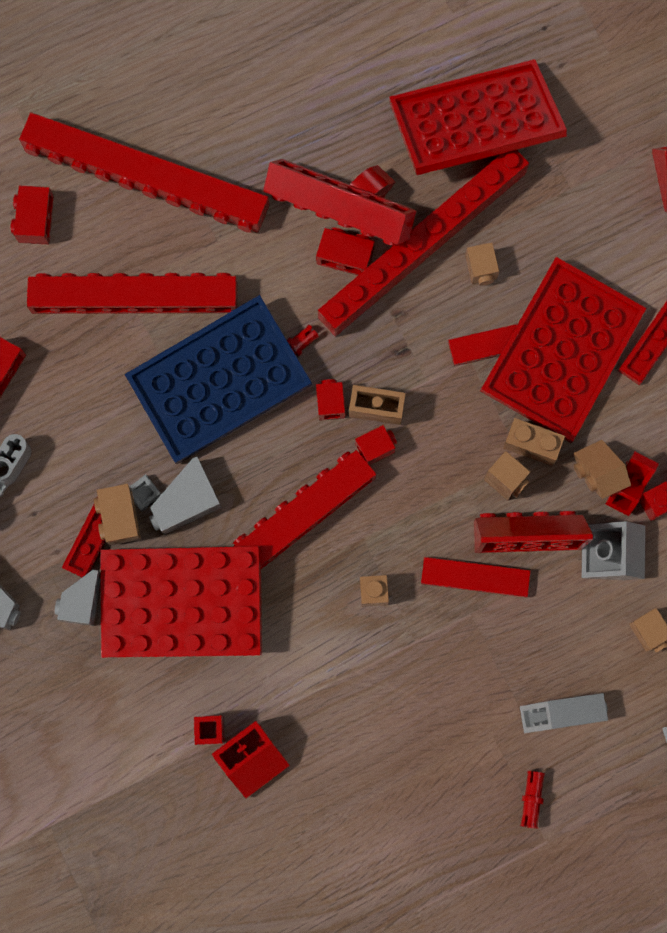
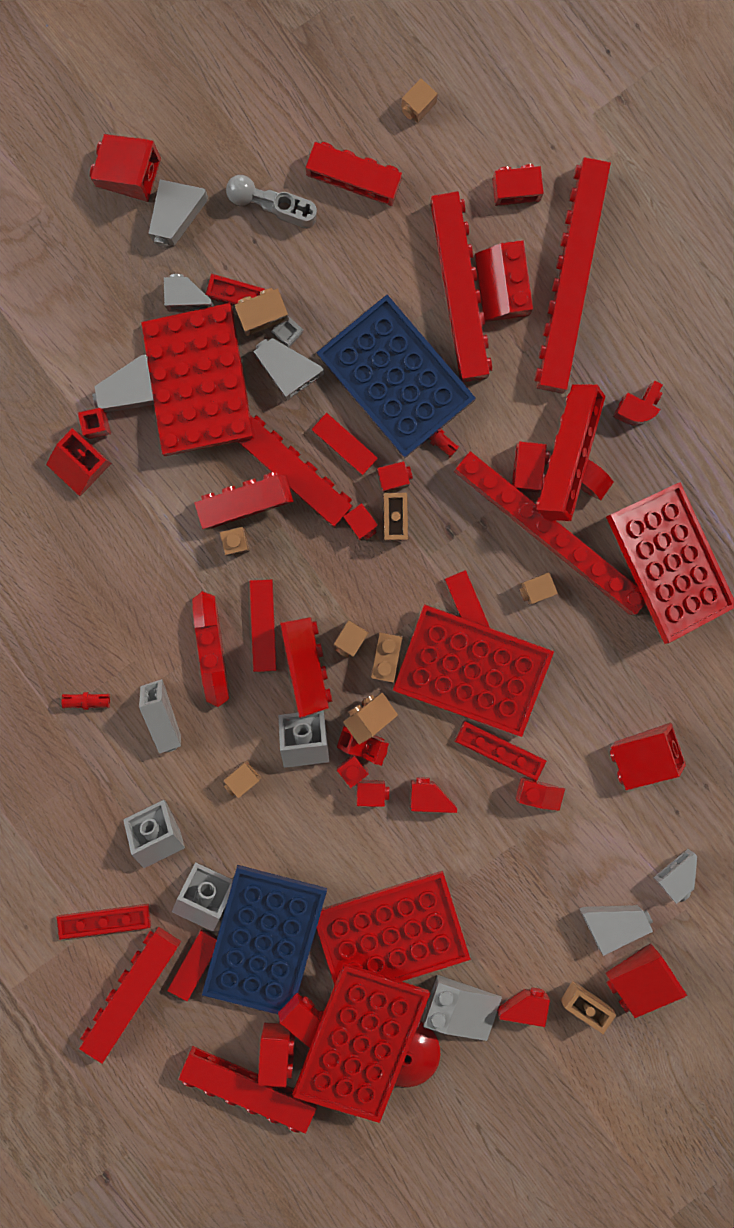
camera: 75 degrees right, 10 degrees up
(135, 245) = (504, 281): none -> red slope
(174, 685) = (126, 388): none -> light grey slope
(283, 450) = (344, 444): none -> red tile
(303, 126) = (639, 411): none -> red brick
(330, 571) = (243, 501): none -> red brick
(493, 642) = (210, 649): none -> red brick

